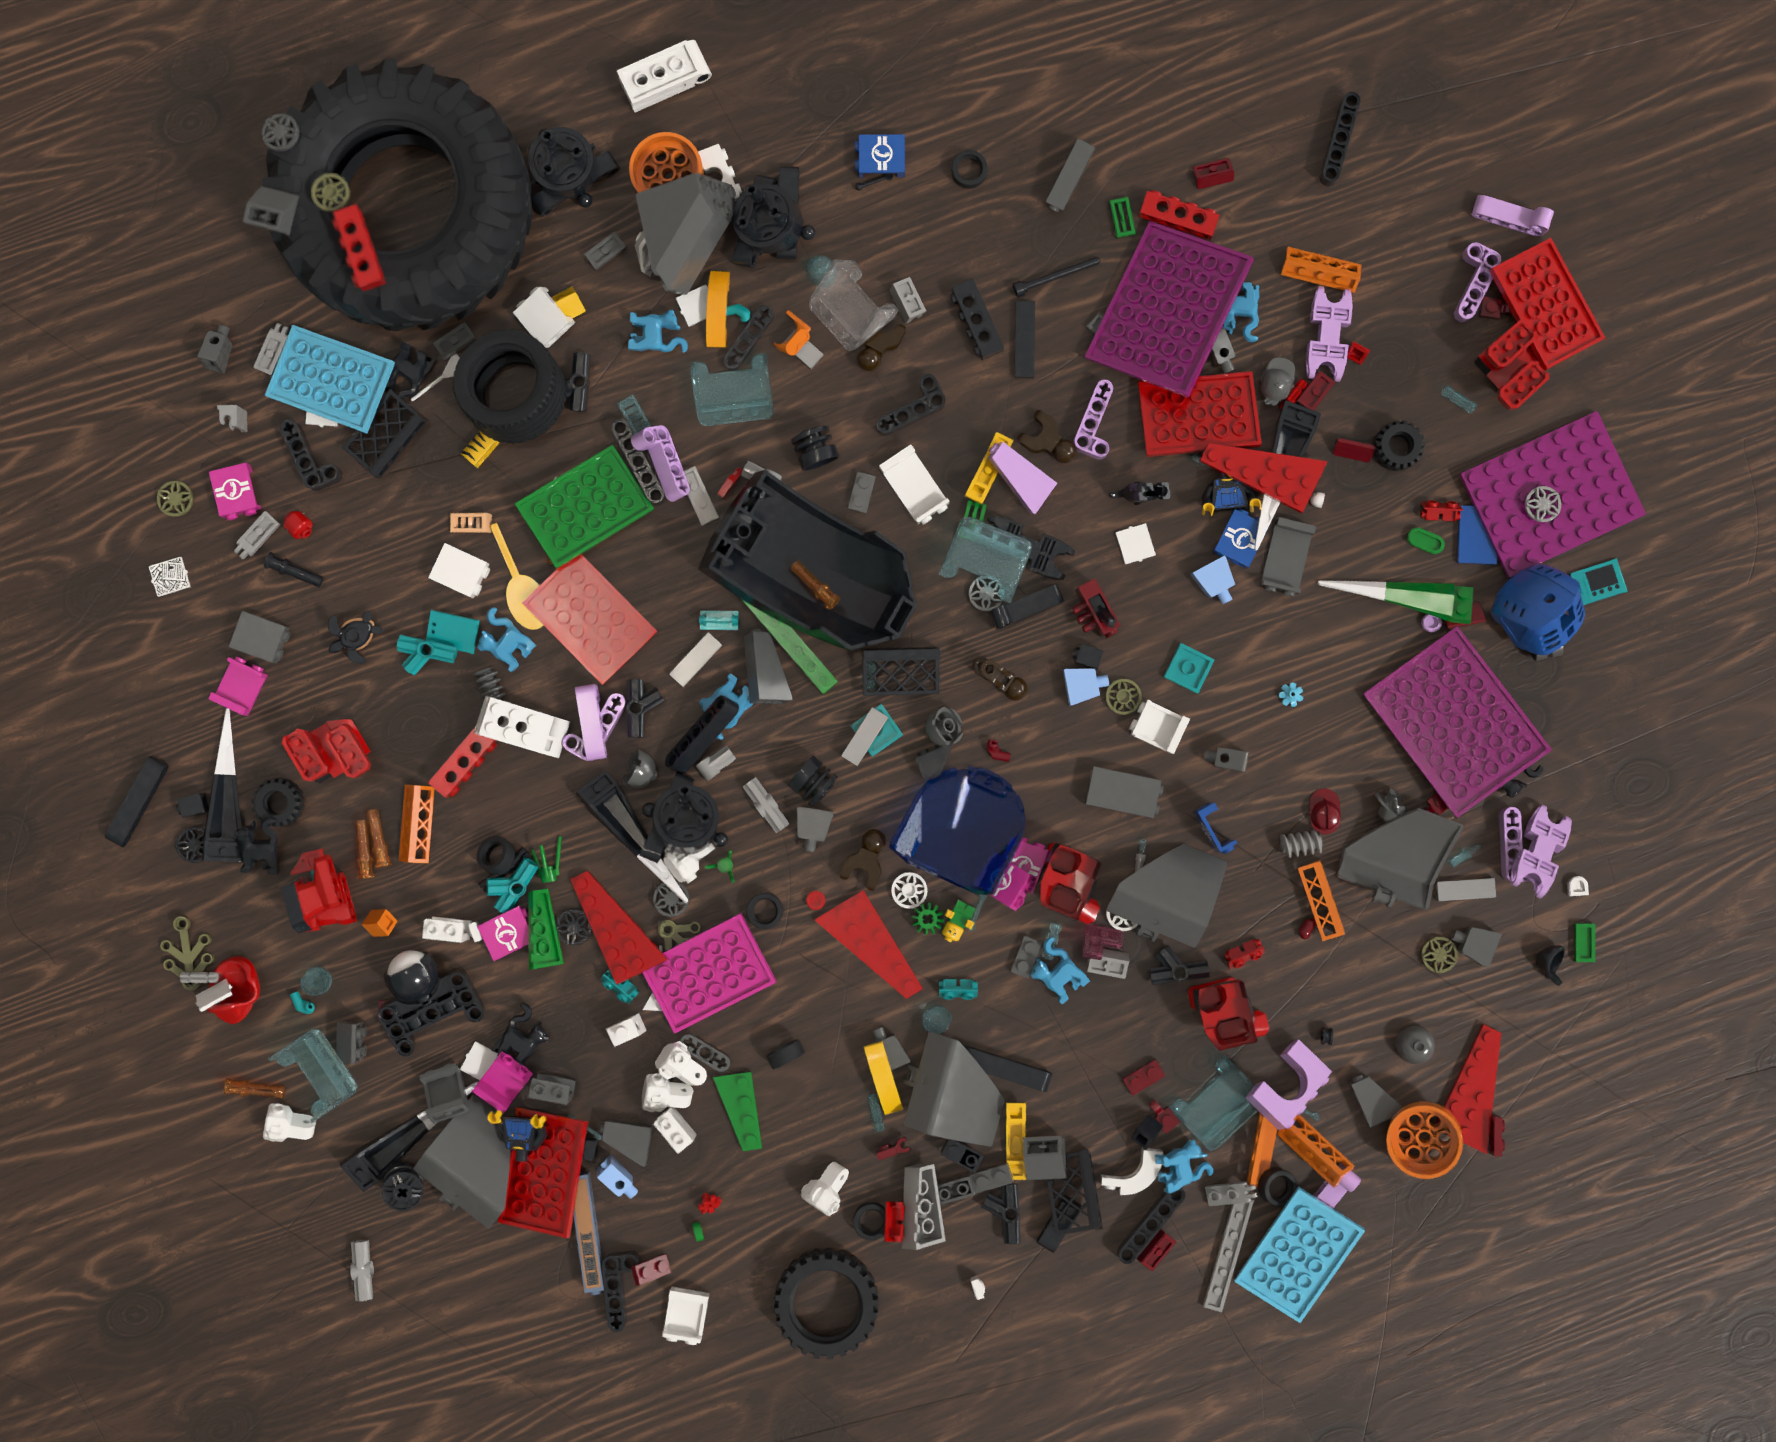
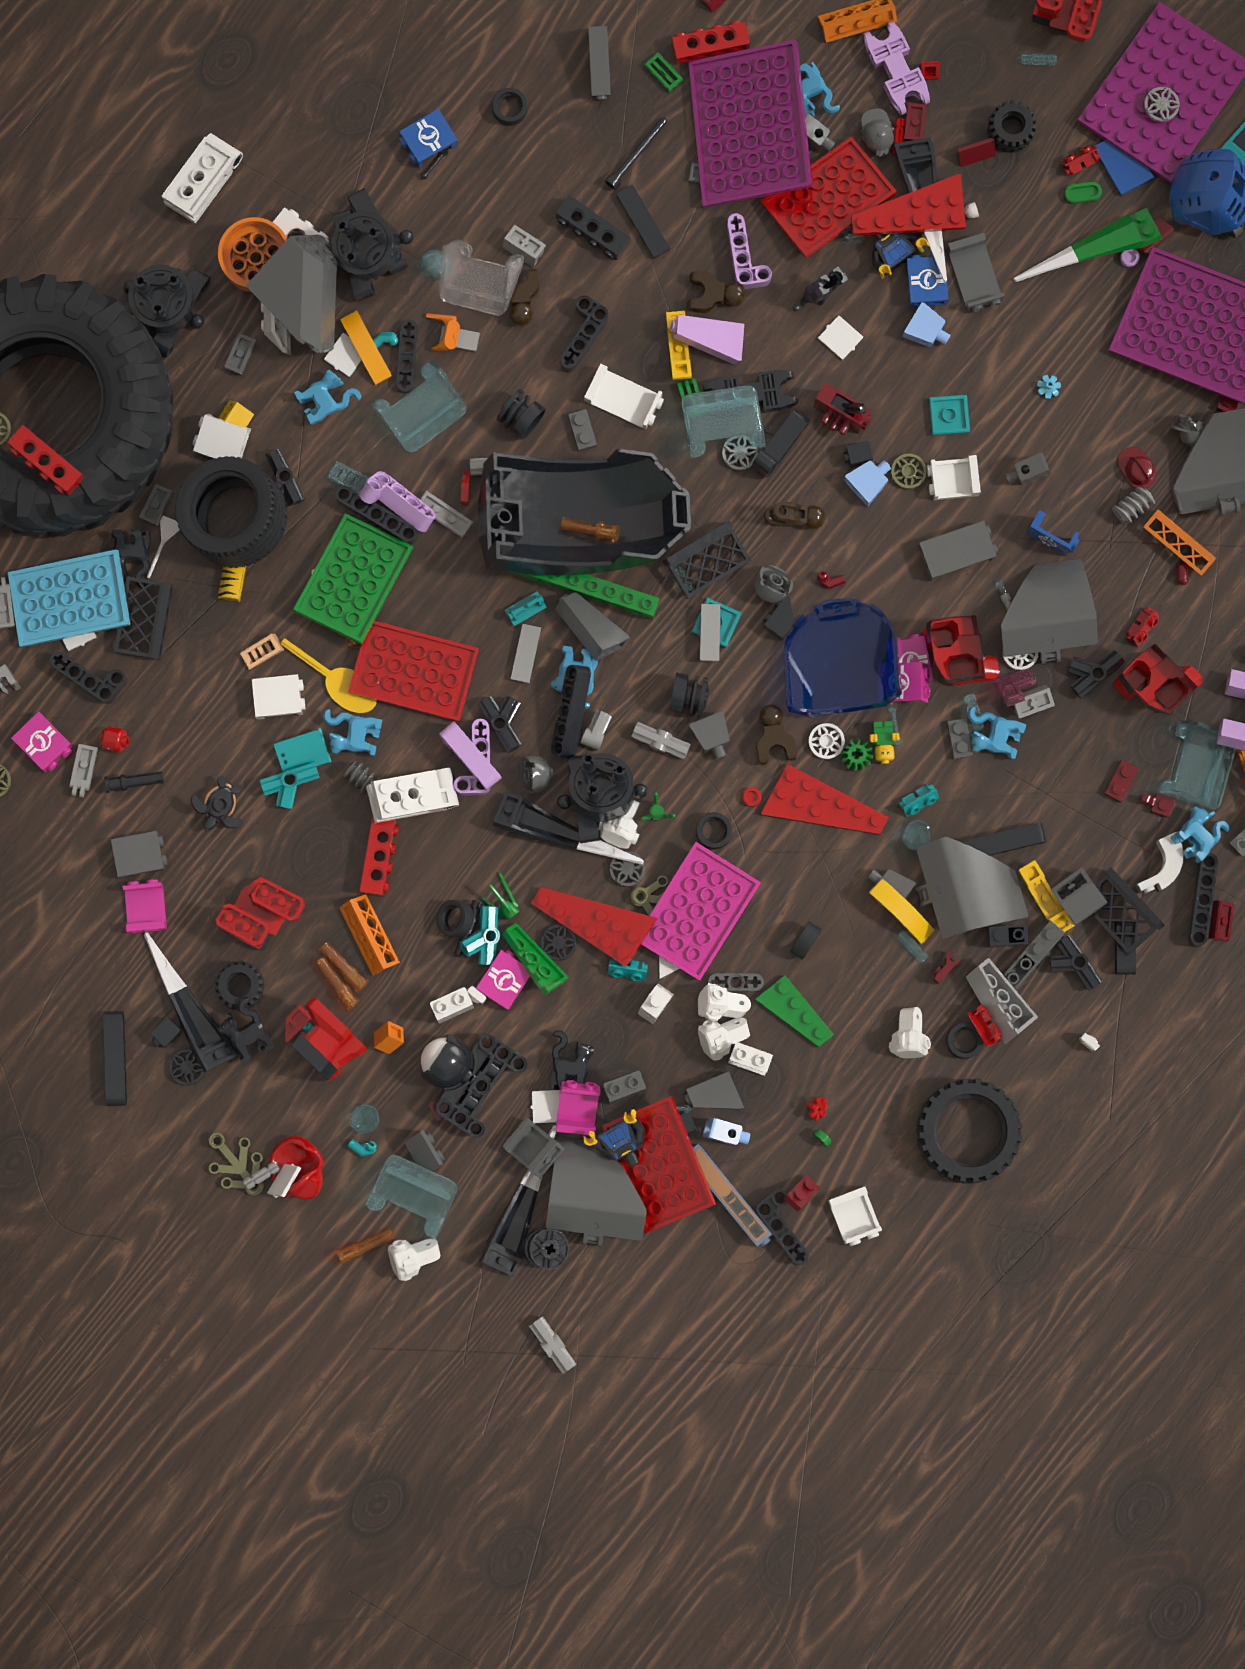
camera: 35 degrees left, 5 degrees down
(169, 576) = (27, 850): white piece -> none
(1147, 1132) = (1152, 823): black brick -> none

